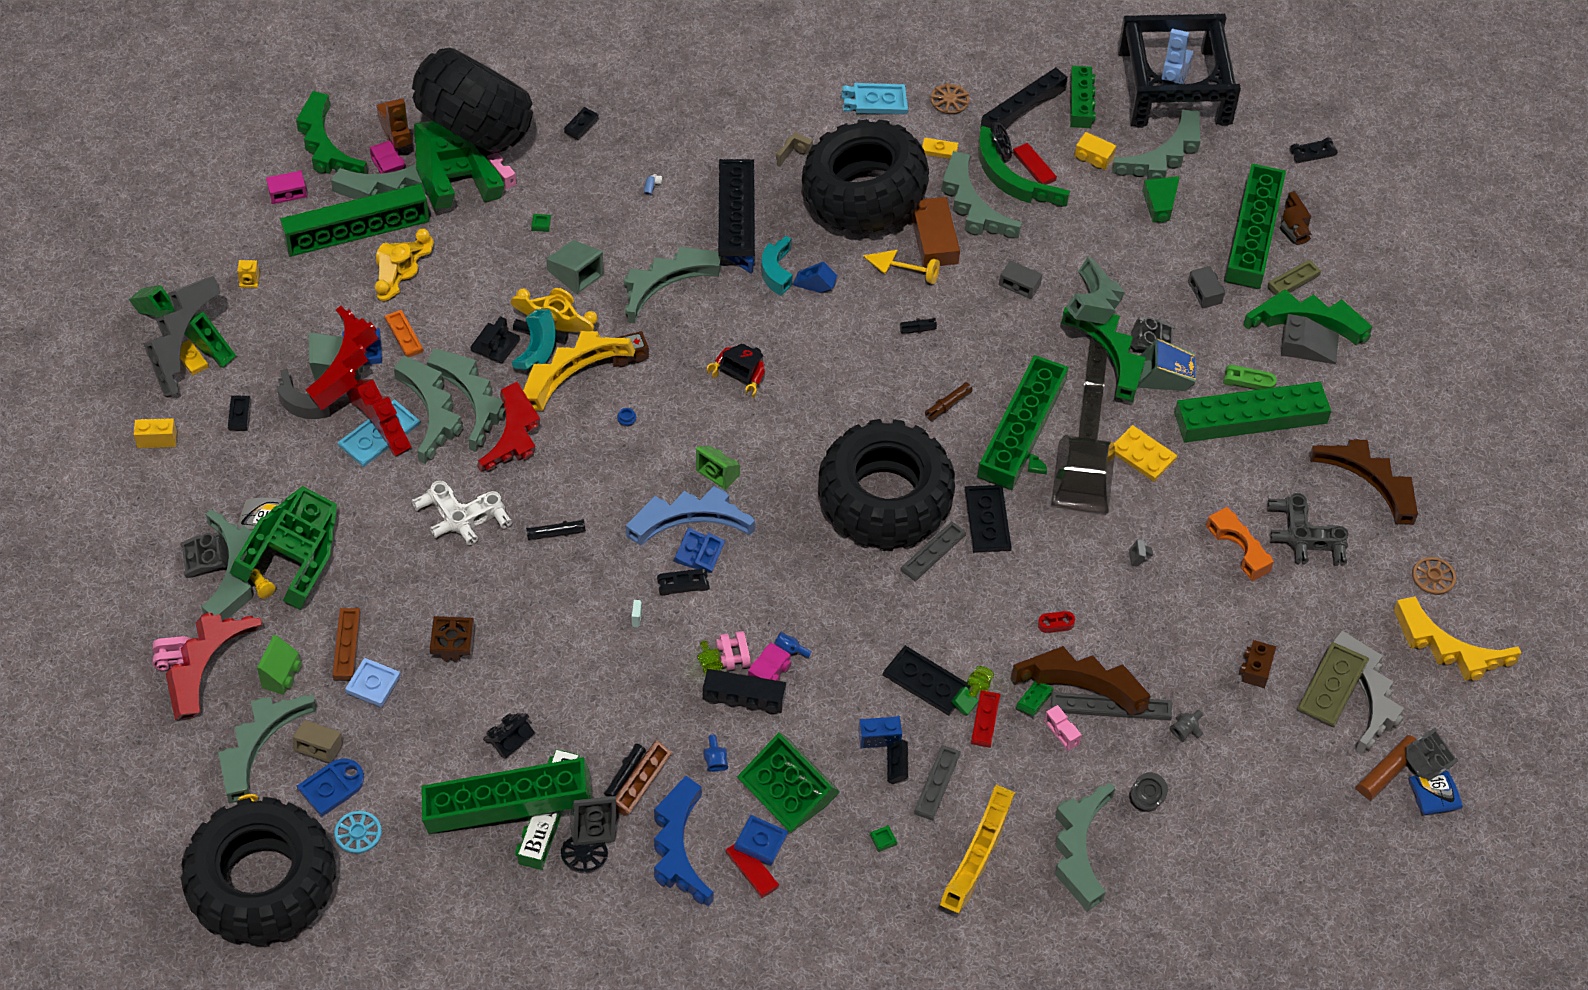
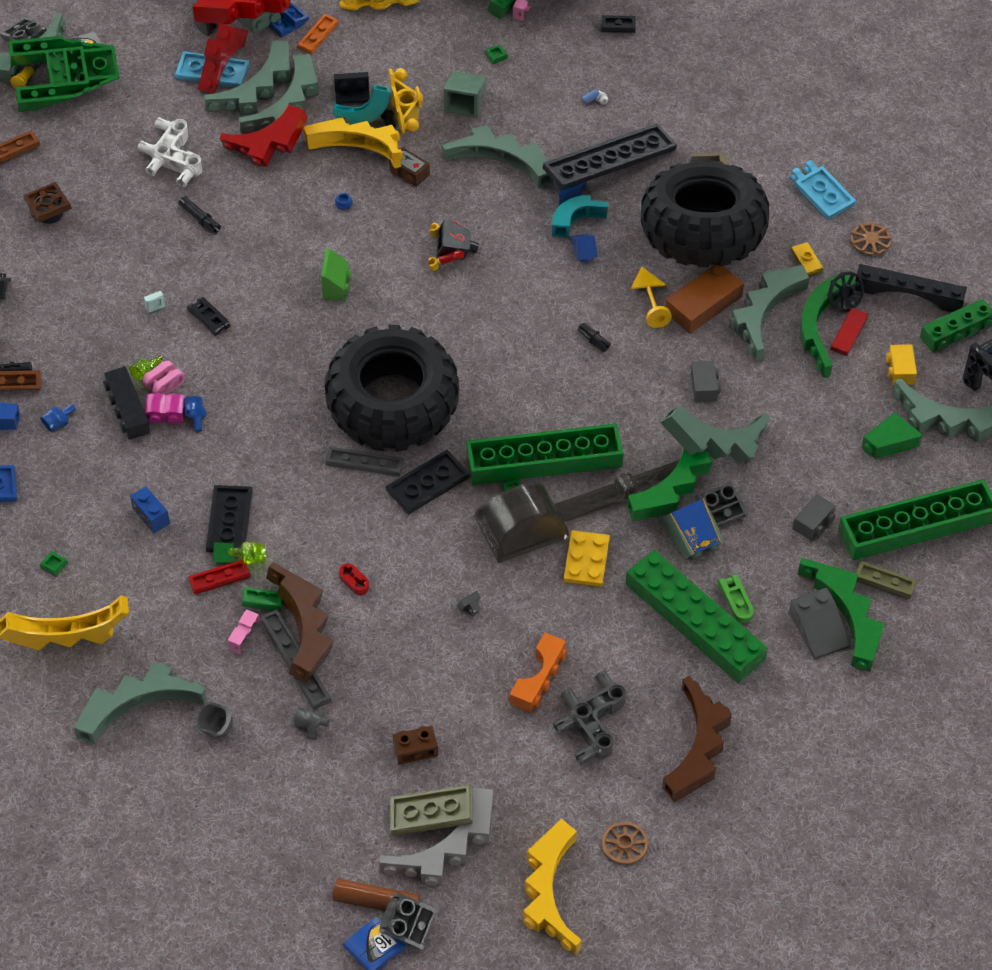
camera: 60 degrees right, 0 degrees up
(699, 550) = (247, 310): blue slope -> none
(713, 507) = (262, 269): medium blue arch -> none
(788, 783) = (62, 475): green slope -> none
(897, 761) = (138, 533): black plate -> none
(937, 782) = (132, 573): dark grey tile -> none
(944, 404) = (528, 395): reddish brown pin -> none
(1296, 219) = (956, 549): reddish brown plate -> none

